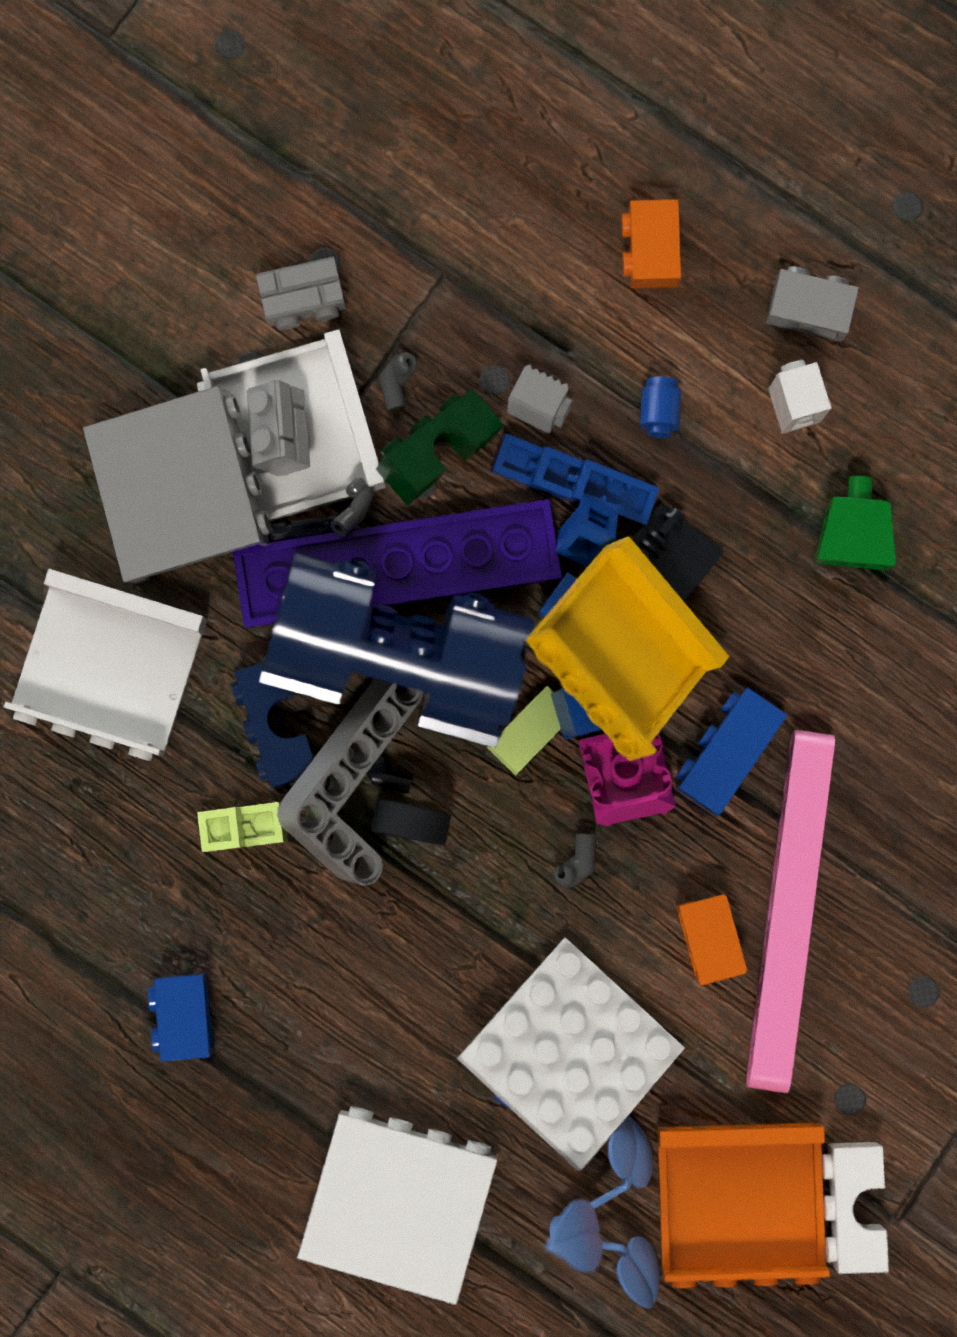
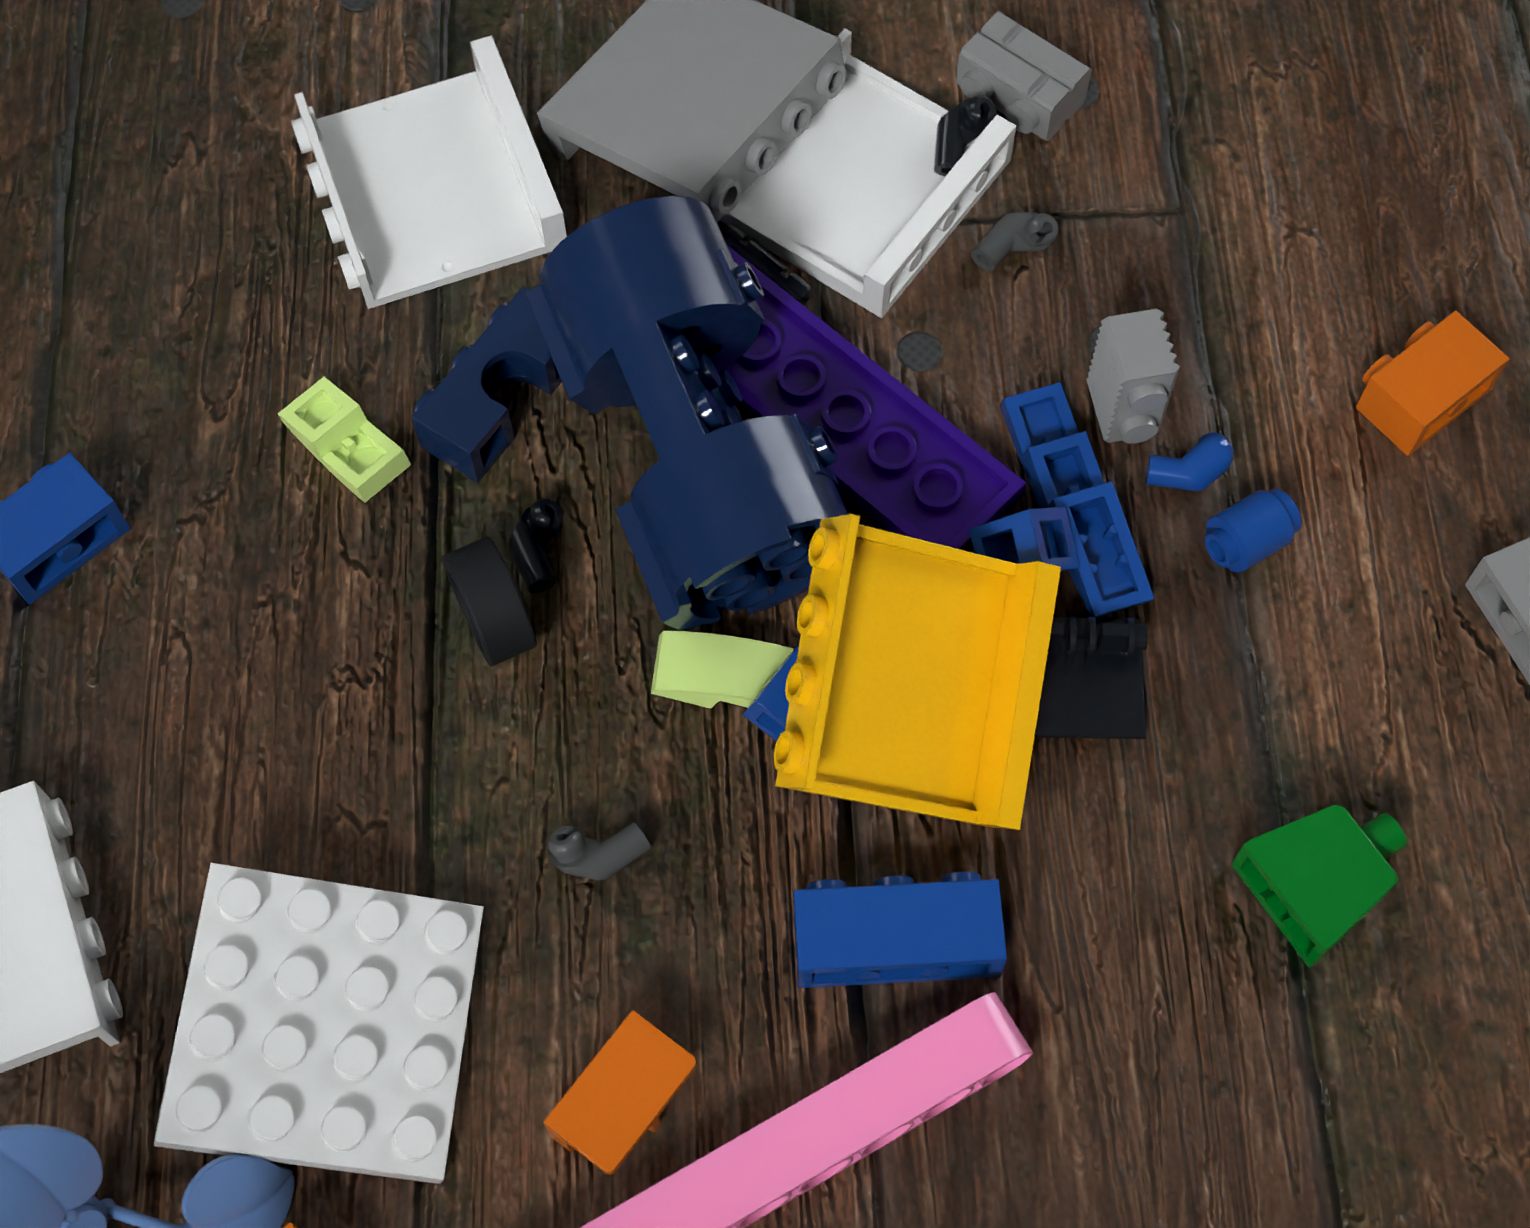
camera: 55 degrees right, 20 degrees down
(278, 428) = (847, 138): light grey brick -> none
(309, 357) = (960, 128): none -> black arm
(344, 777) = (491, 478): light grey beam -> none
(357, 510) = (830, 291): dark grey arm -> none
(463, 425) = (1024, 322): dark green arch -> none
(605, 403) = (1196, 469): none -> blue arm
(622, 787) = (755, 836): dark pink slope -> none
(799, 396) = (1420, 665): white brick -> none

